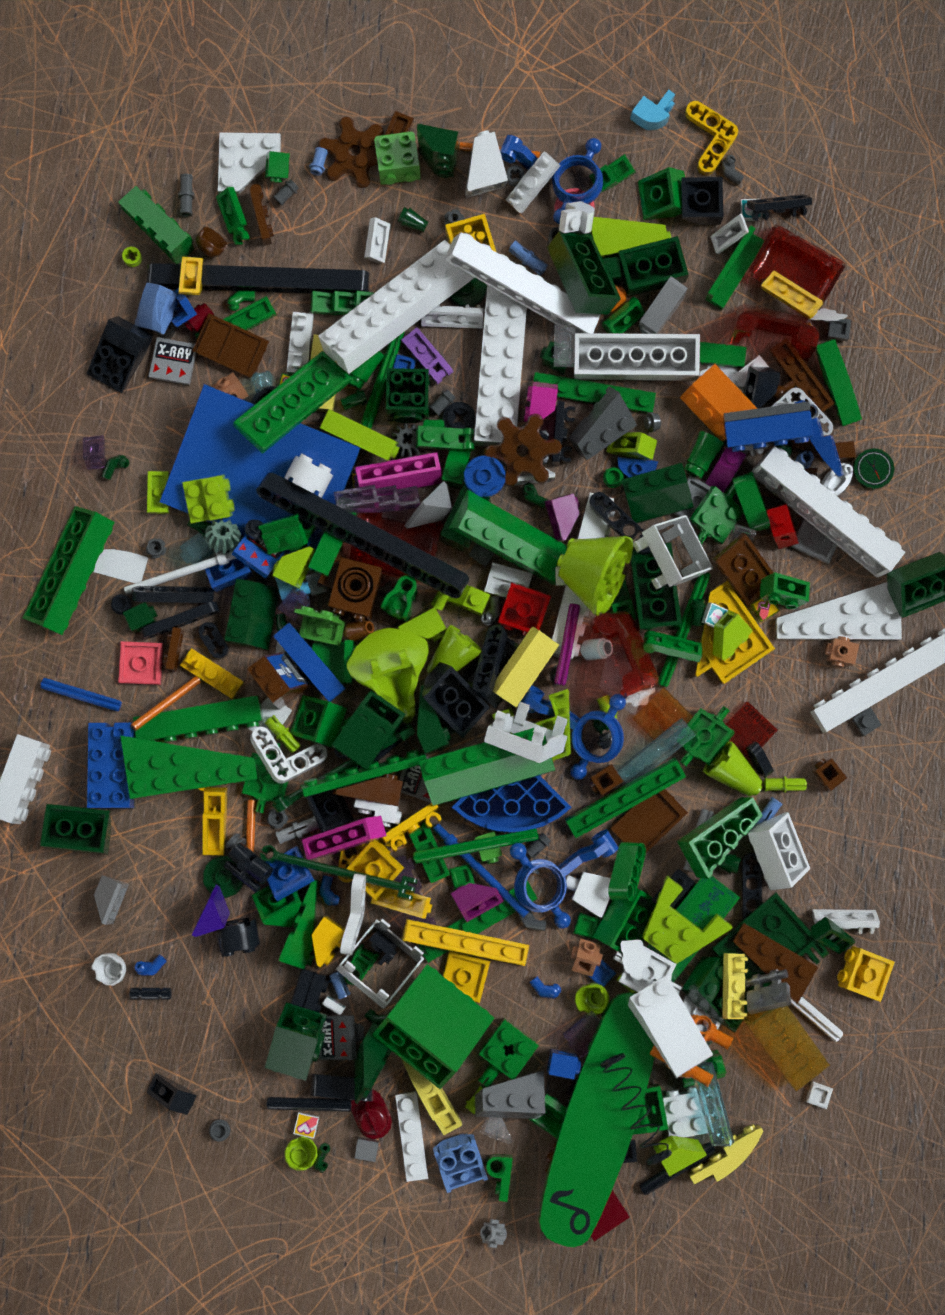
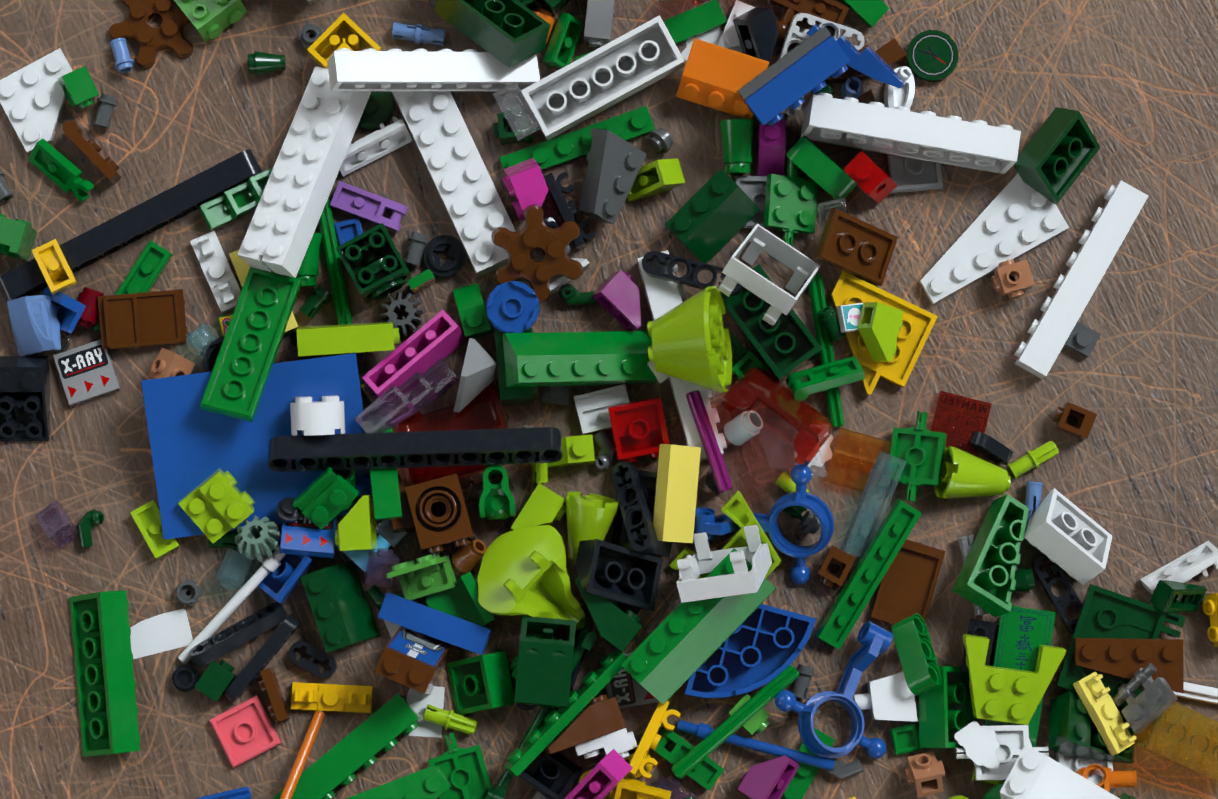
camera: 30 degrees left, 0 degrees up
(210, 242) = (52, 215): reddish brown hair -> none
(238, 297) = (119, 259): green arm -> none
(286, 764) = (475, 751): white beam -> none
(377, 240) = (239, 108): white plate -> none
(444, 438) = (441, 288): green plate -> none
(461, 876) = (737, 763): green tile -> none
(602, 974) = (953, 782): blue tile -> none
(613, 477) = (652, 226): green plate -> none
(635, 467) = (671, 201): blue plate -> none
(764, 609) = (901, 276): tile -> none
(784, 590) = (912, 246): green brick -> none

